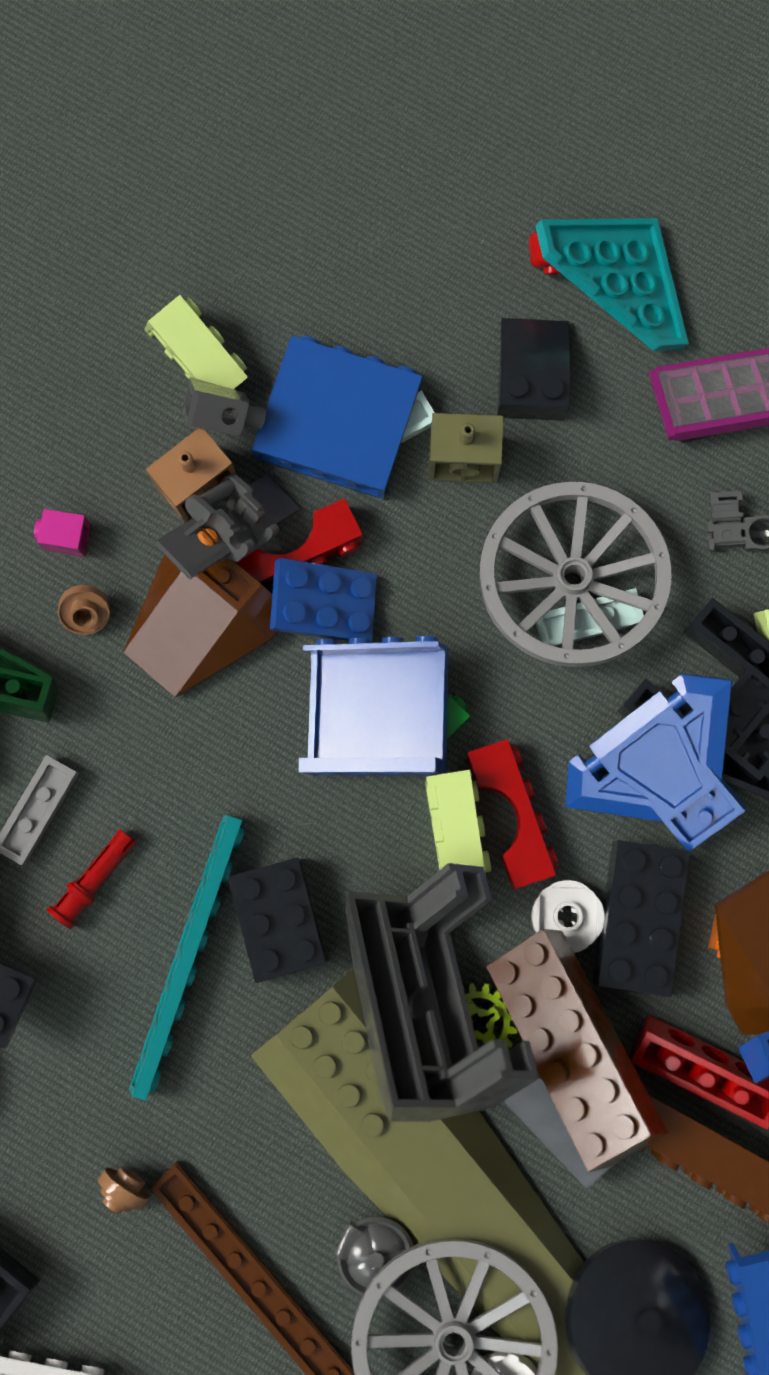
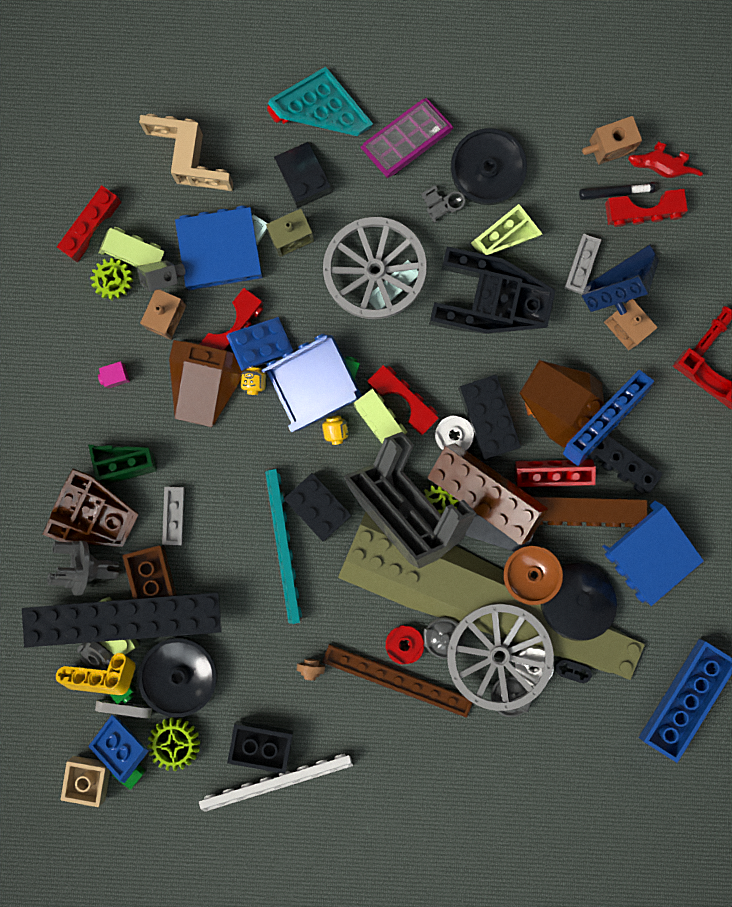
camera: 30 degrees left, 5 degrees up
(81, 892) = (216, 543): red pin -> none
(83, 609) = (144, 407): medium nougat plate -> none
(152, 371) = (109, 286): none -> lime gear
(183, 259) = (97, 210): none -> red arch
(222, 536) = (199, 334): dark grey piece -> none
(281, 656) = (253, 380): none -> yellow head
(323, 1237) = (415, 642): none -> red plate
(365, 240) = (186, 152): none -> tan bracket
(374, 805) = (335, 429): none -> yellow head
(555, 1238) = (521, 583): none -> dark orange dish
(664, 763) = (463, 338): plate -> none

